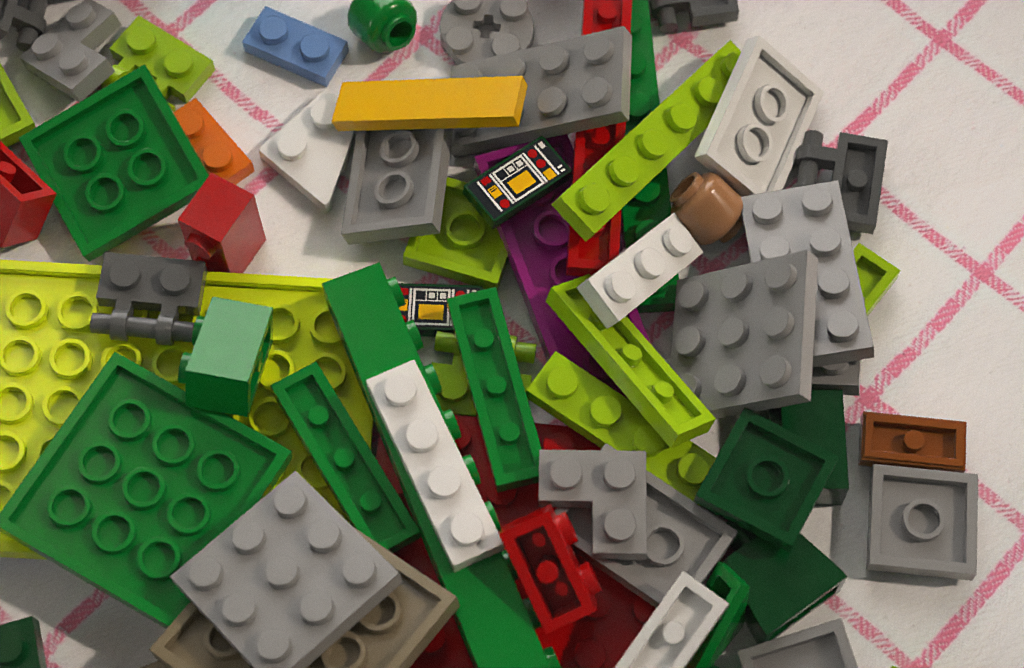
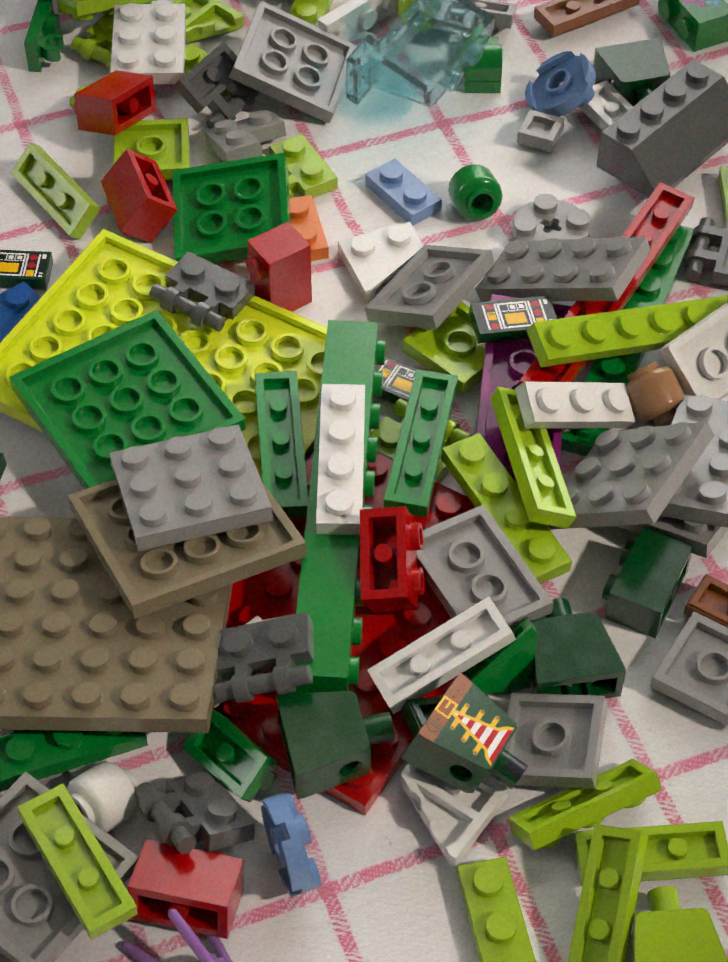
camera: 25 degrees right, 15 degrees down
(227, 356) = (234, 340): brick -> none
(430, 103) = (476, 246): yellow tile -> none
(610, 485) = (467, 533): light grey plate -> none
(766, 479) = (595, 574): dark green plate -> none

